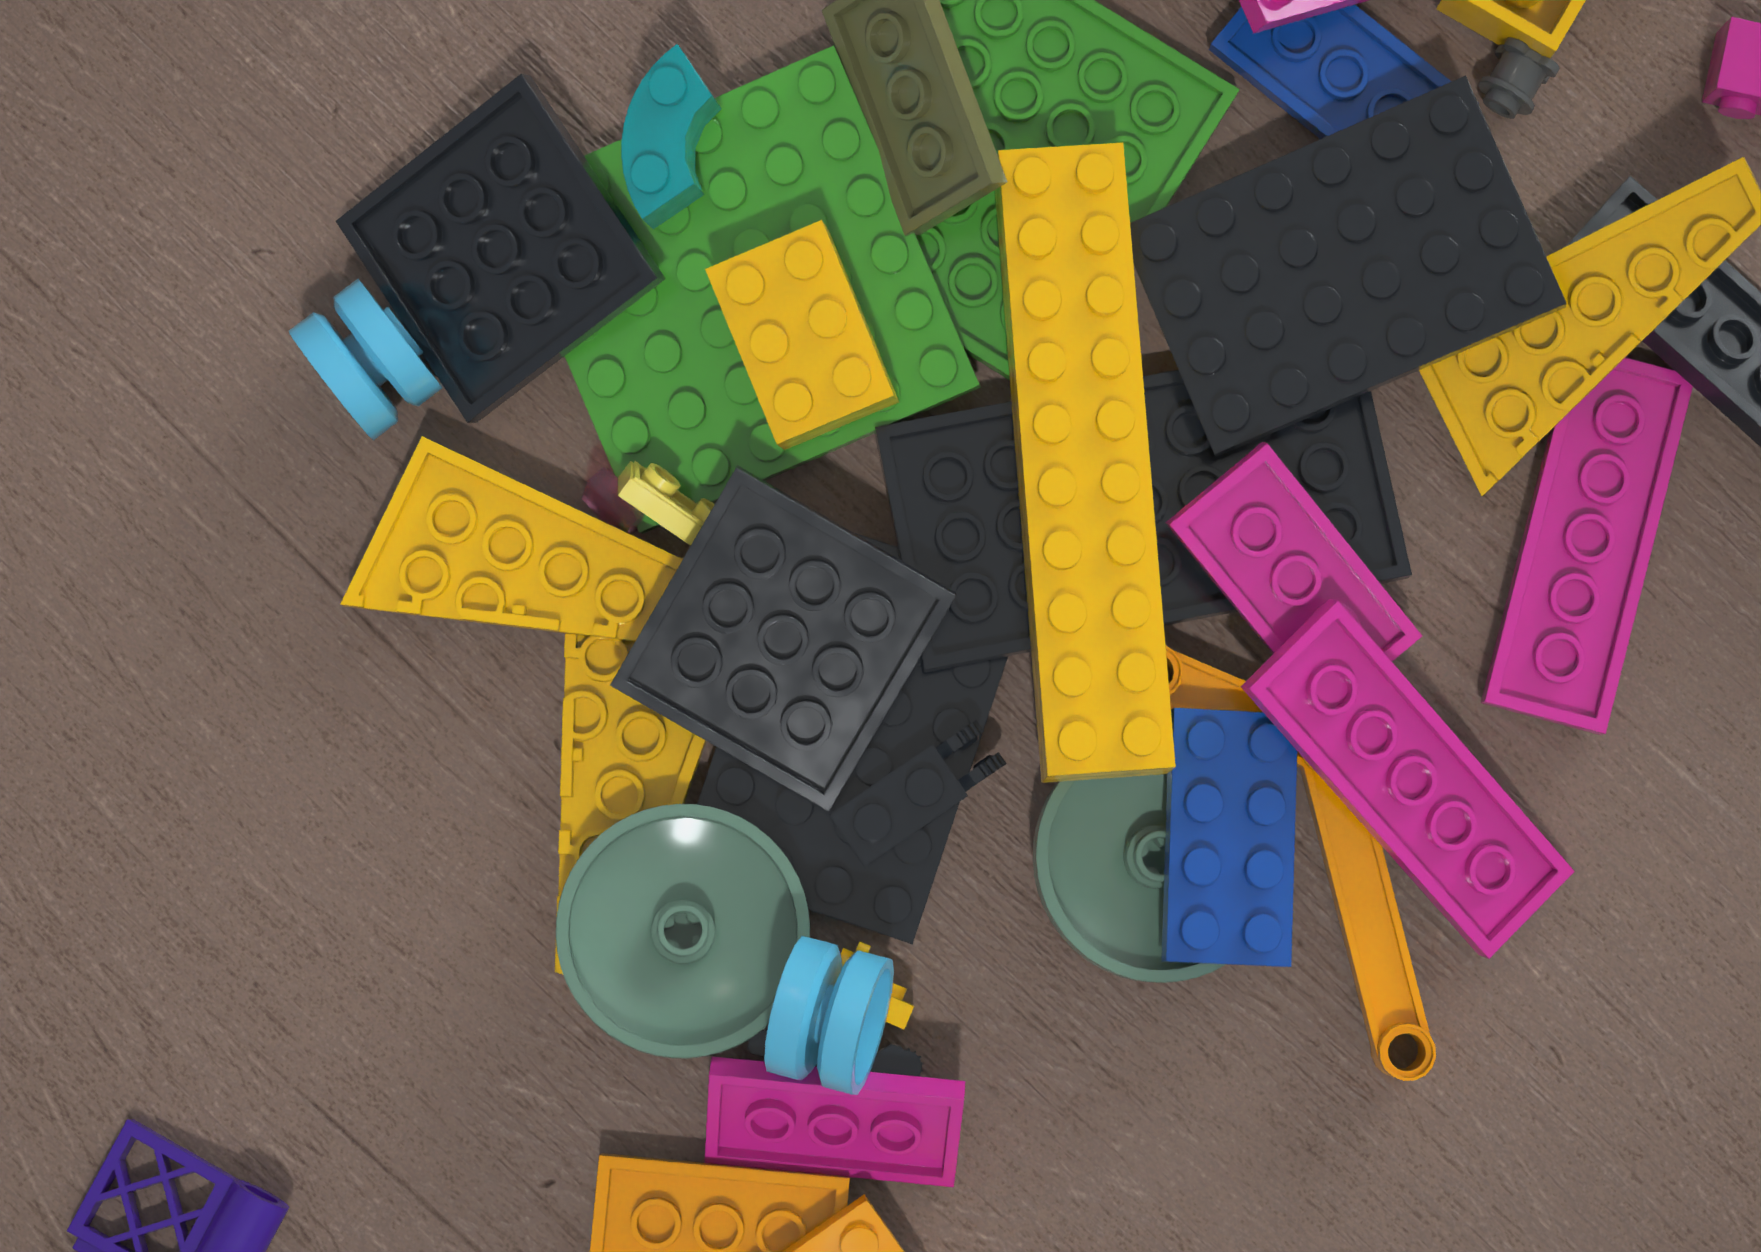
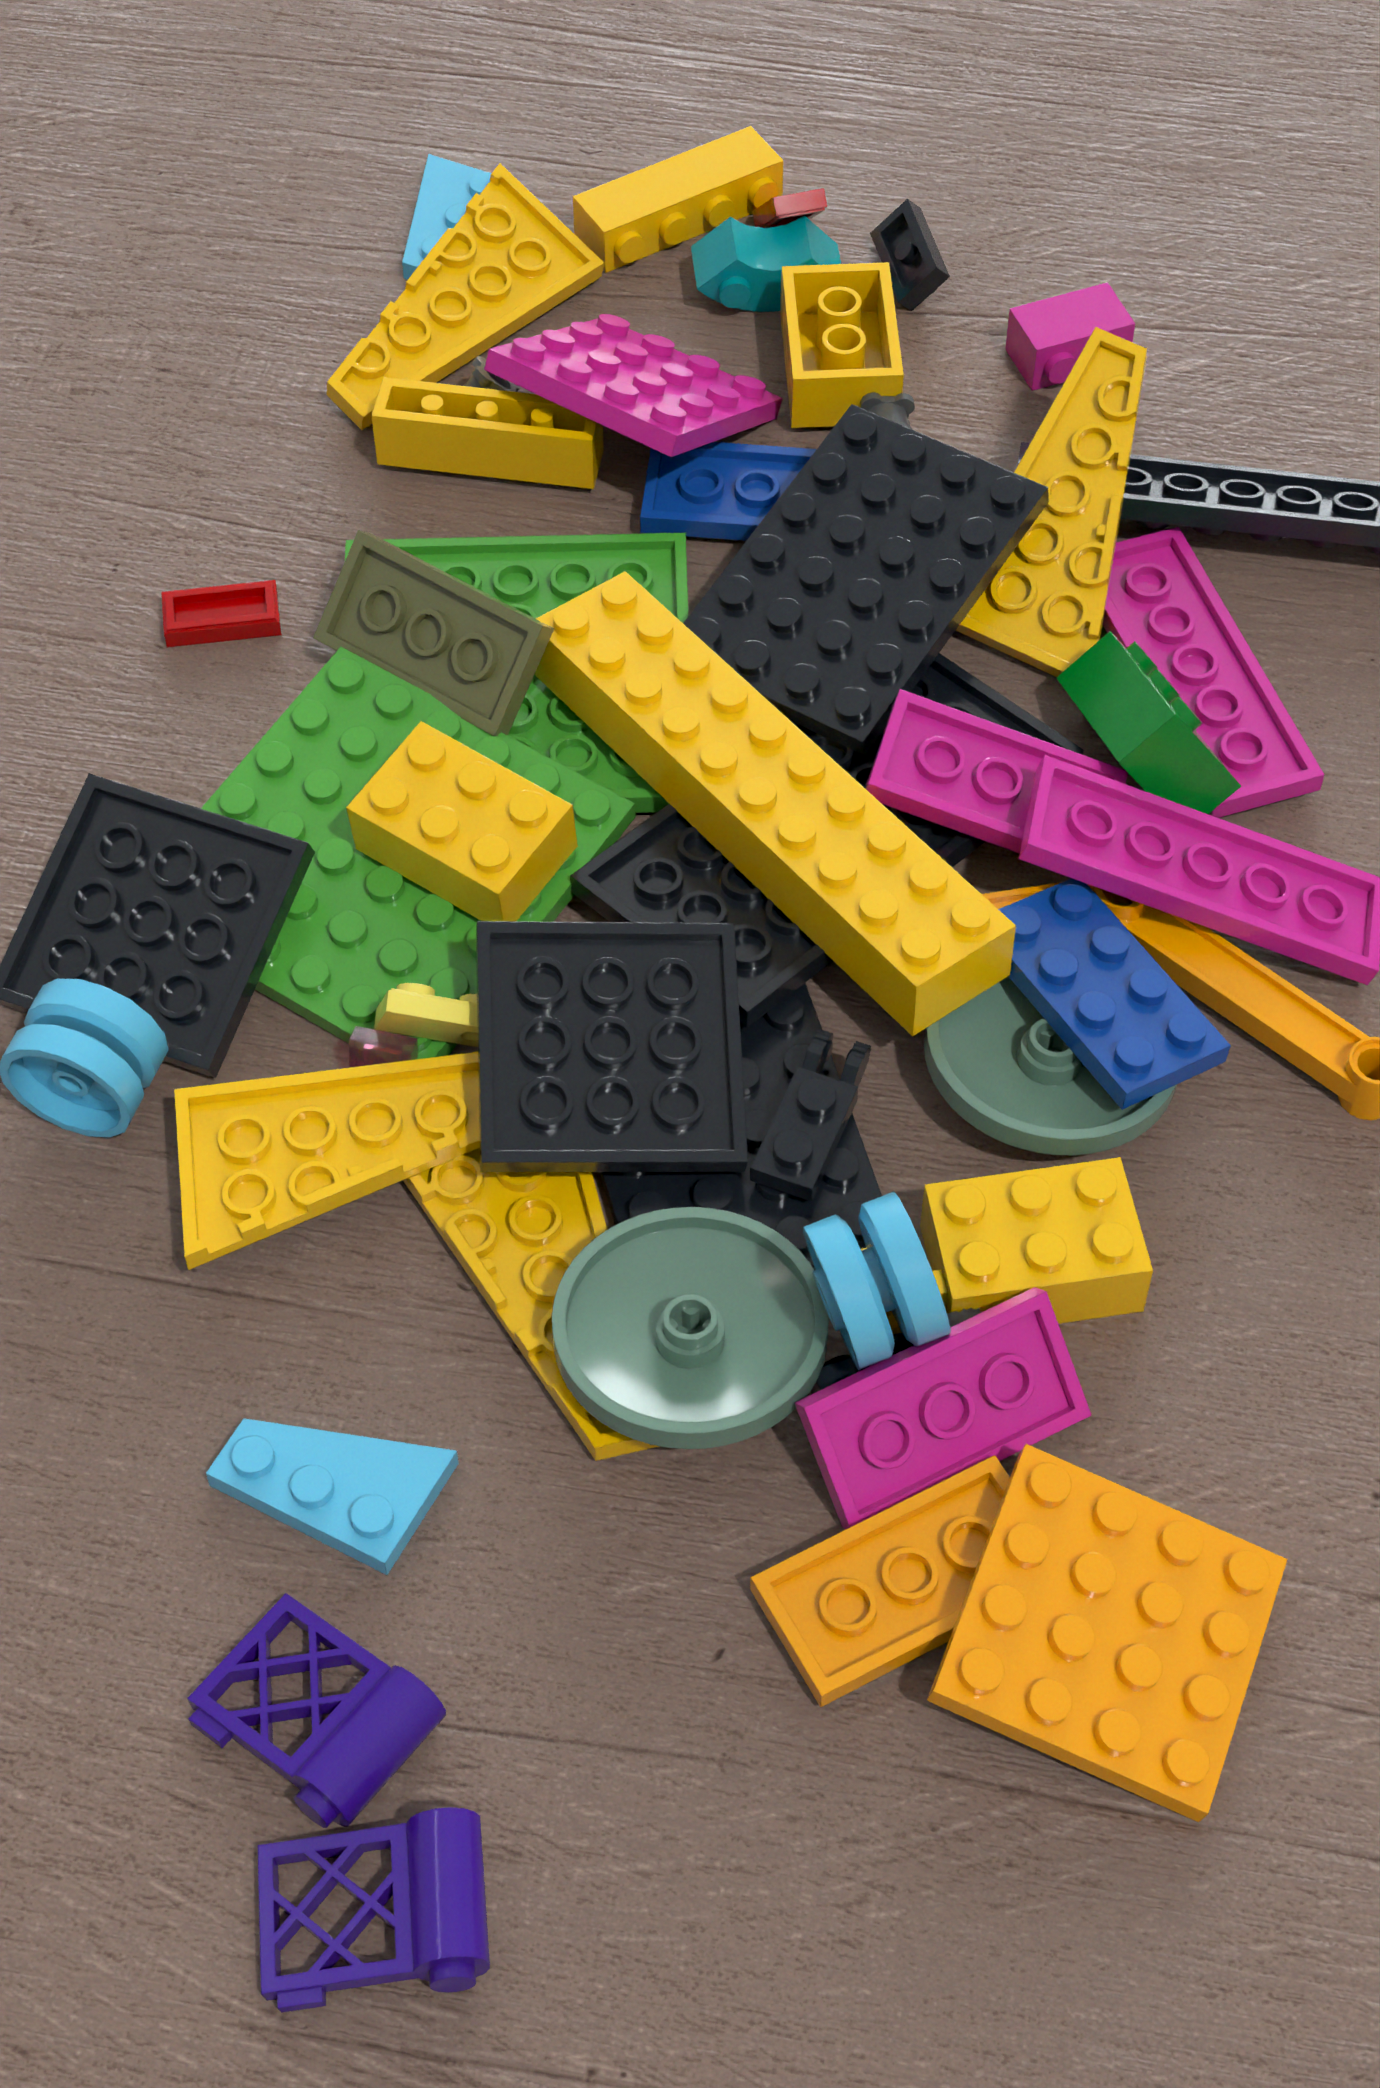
camera: 35 degrees left, 30 degrees down
(237, 1092) = (347, 1753): none -> dark purple piece
(350, 863) = (335, 1486): none -> medium azure wing
(662, 137) = (248, 767): teal brick -> none
(1010, 1025) = (1043, 1229): none -> yellow brick
(1475, 593) = (1147, 725): none -> green wedge

